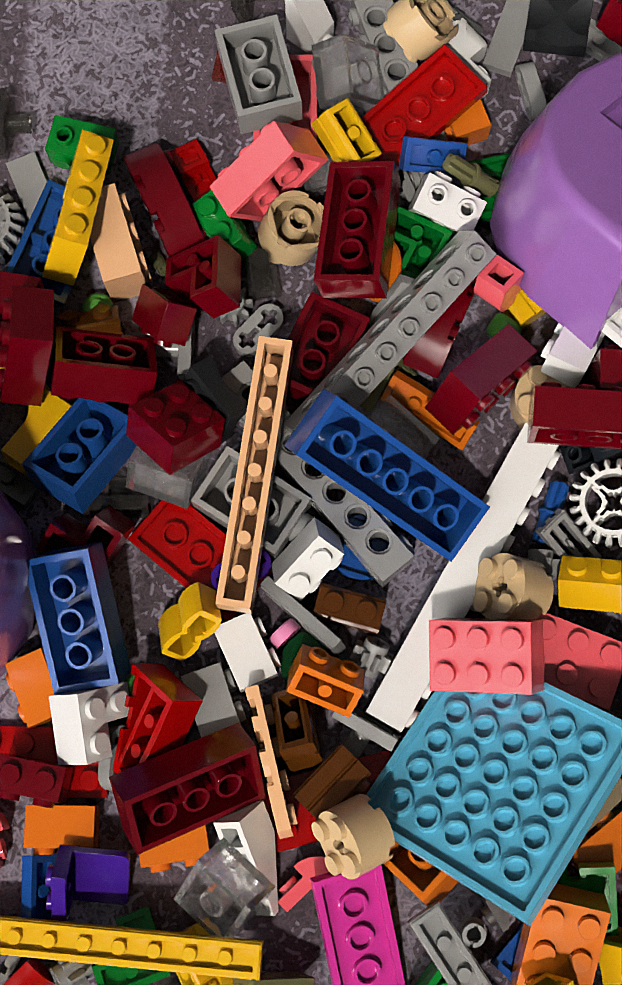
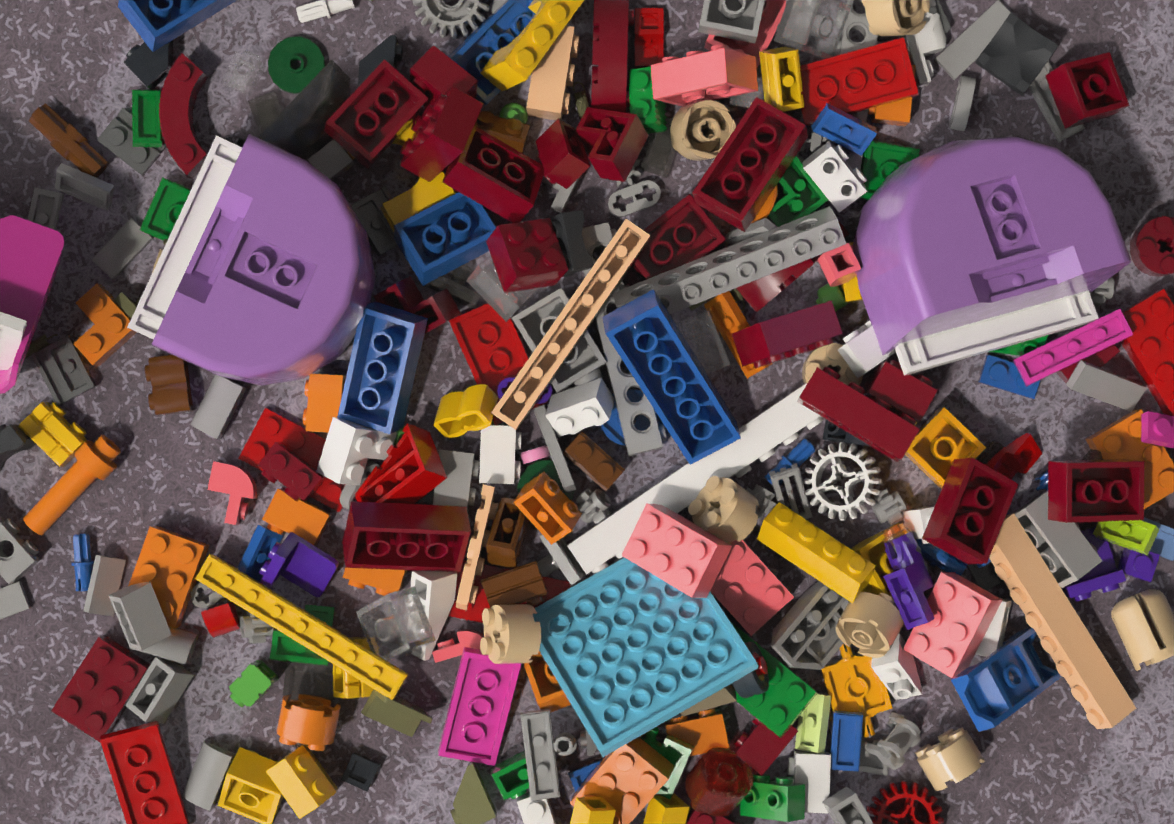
camera: 25 degrees right, 10 degrees up
(471, 175) = (867, 160): olive axle -> none

